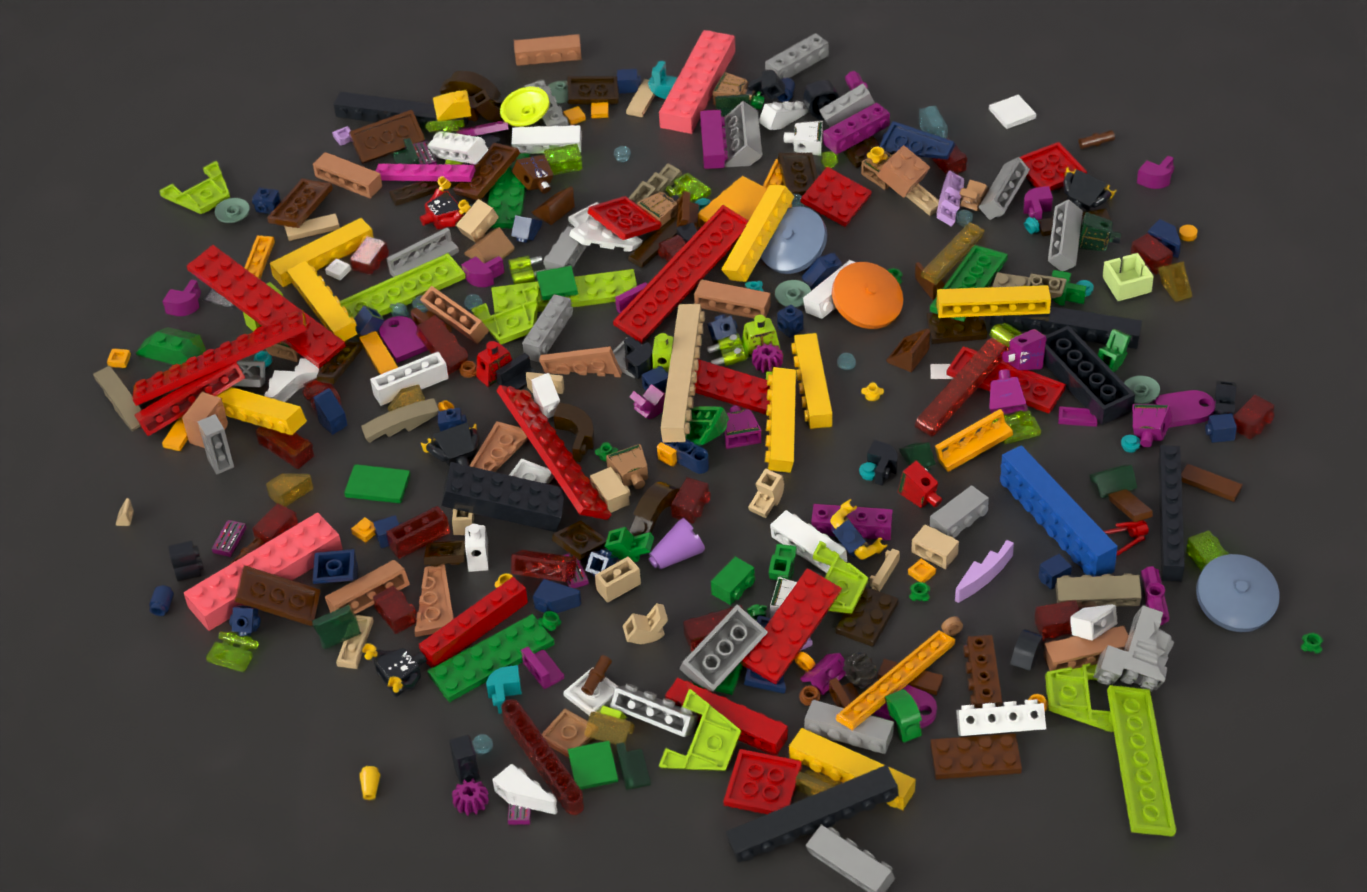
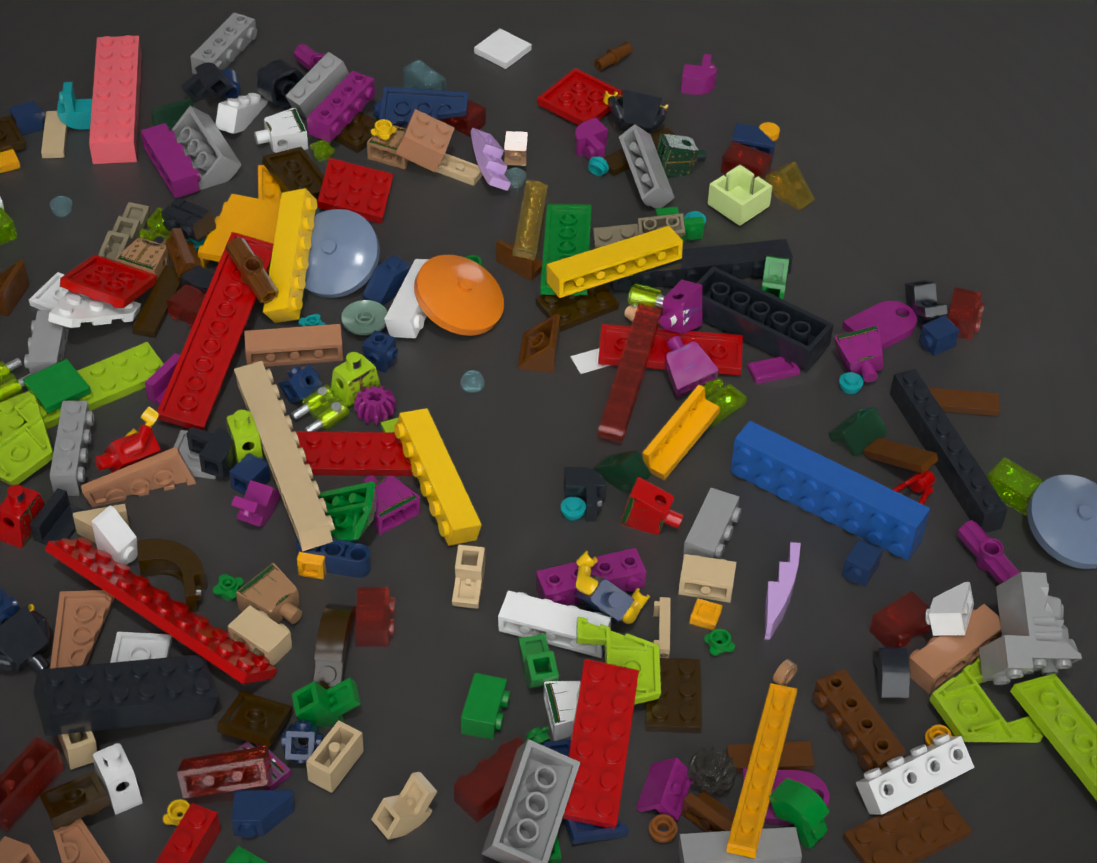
camera: 30 degrees left, 0 degrees up
(550, 620) = (267, 847): green plate -> none
(582, 339) = (132, 447): none -> red torso
(676, 546) = (390, 683): medium lavender cone -> none
(700, 187) = (189, 217): none -> black brick
(723, 244) = (247, 262): none -> reddish brown piece
(731, 85) = (162, 93): medium nougat torso -> none
(757, 101) = (202, 103): green plate -> none
(804, 661) = (634, 784): light orange tile -> none
(813, 381) = (455, 426): yellow brick -> none
(872, 392) = (523, 409): yellow plate -> none
(1004, 188) = (546, 133): light grey brick -> none
(1099, 591) = (928, 570): dark tan brick -> none
(1144, 388) = (833, 313): sand green dish -> none

